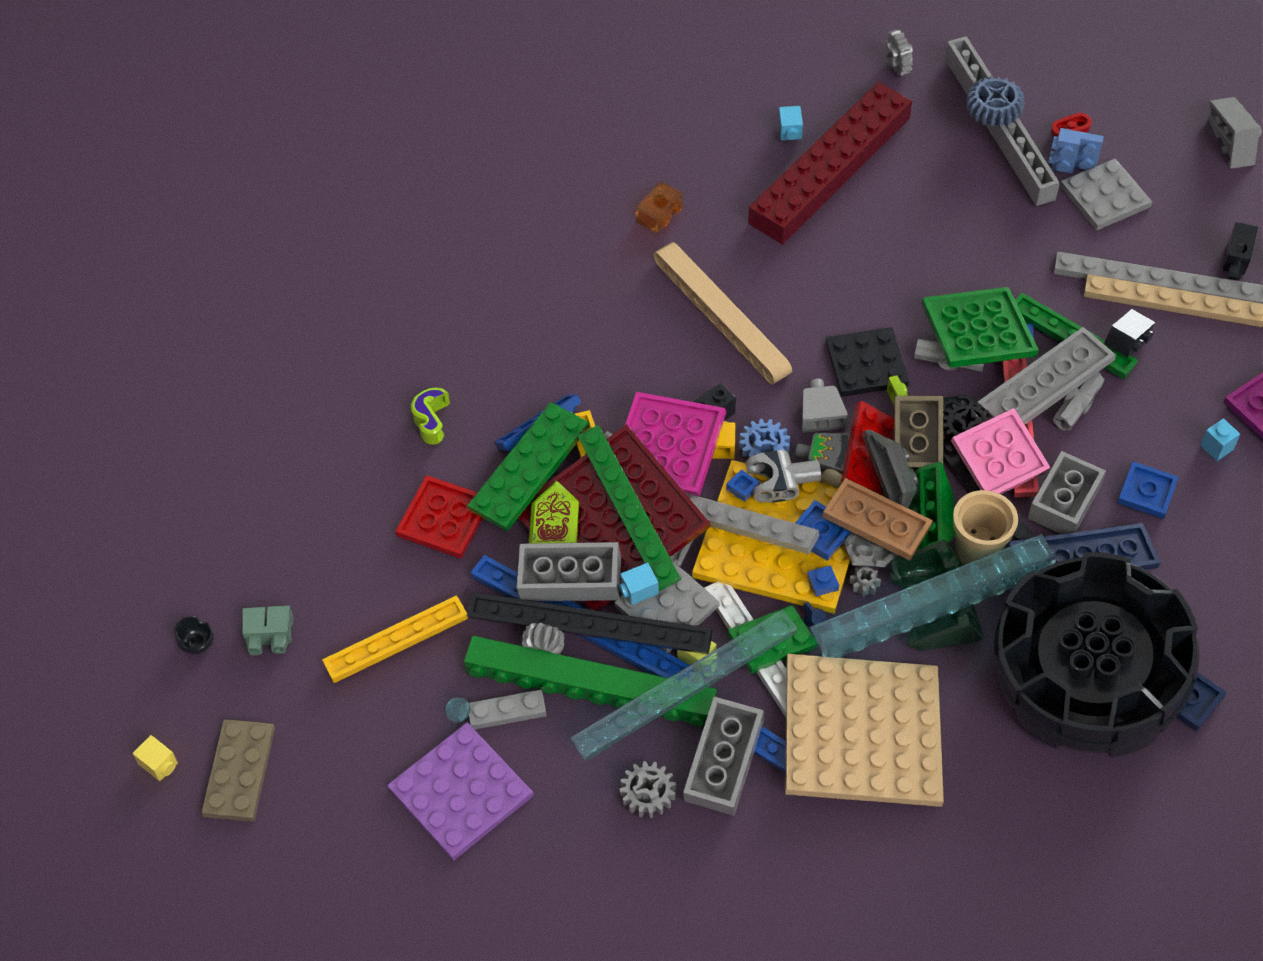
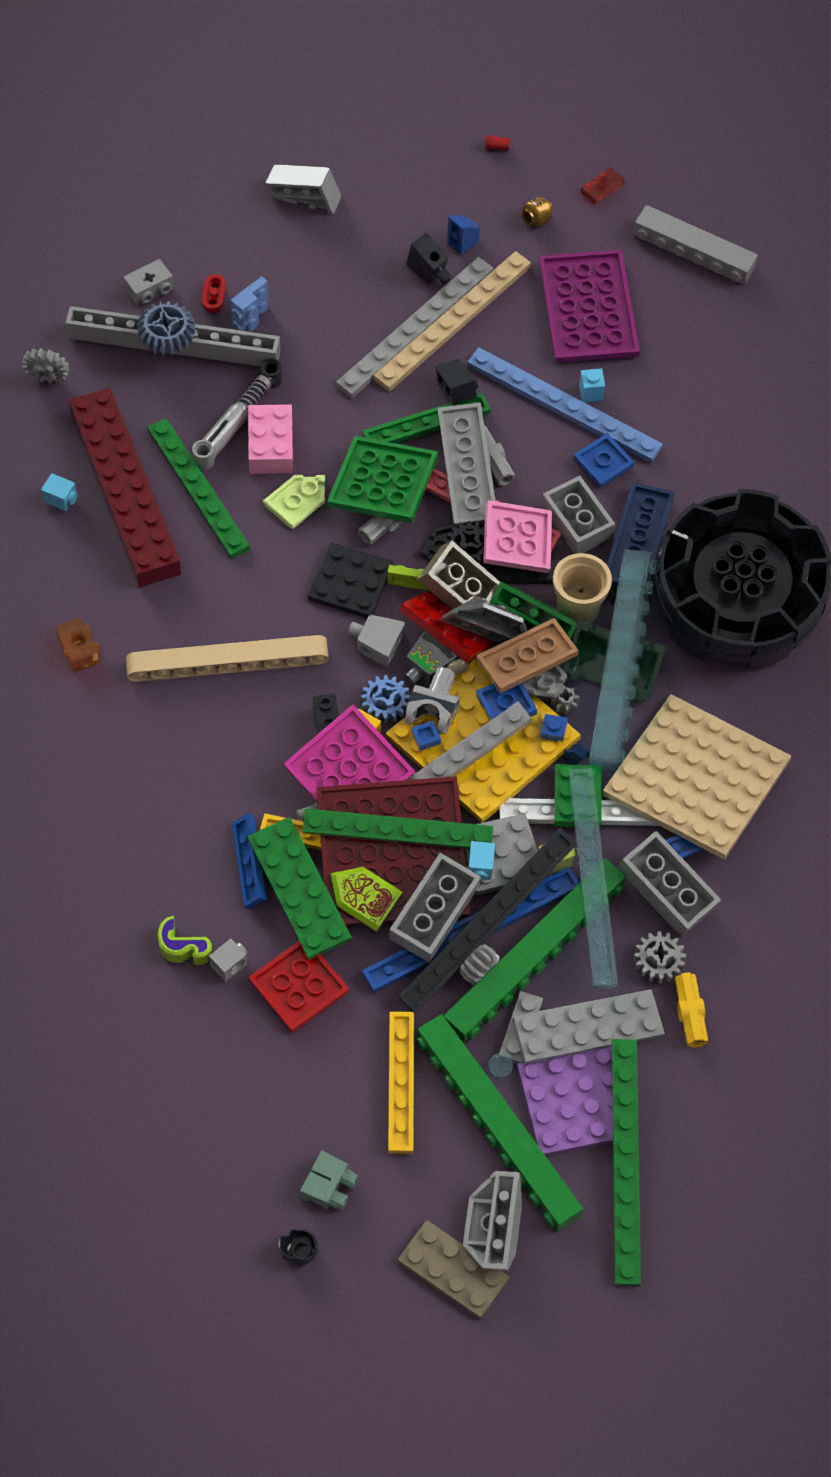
camera: 65 degrees left, 5 degrees up
(155, 758) = (405, 1332): light yellow brick -> none
(293, 778) = (494, 1221): none -> light grey wedge
(395, 739) = (499, 1123): none -> green brick
(415, 859) = (625, 1163): none -> green plate
(435, 454) = (228, 959): none -> light grey brick
(538, 763) = (587, 1026): none -> light grey plate
(609, 843) = (691, 1010): none -> yellow piece
(872, 214) = (198, 488): none -> green plate
(911, 197) = (236, 415): none -> piece
(915, 281) = (297, 499): none -> yellowish green tile
(958, 233) = (270, 439): none -> bright pink brick
(1042, 79) = (148, 282): none -> light grey brick
(1105, 194) = (300, 313): light grey plate -> none
(1184, 435) = (564, 404): none -> medium blue plate

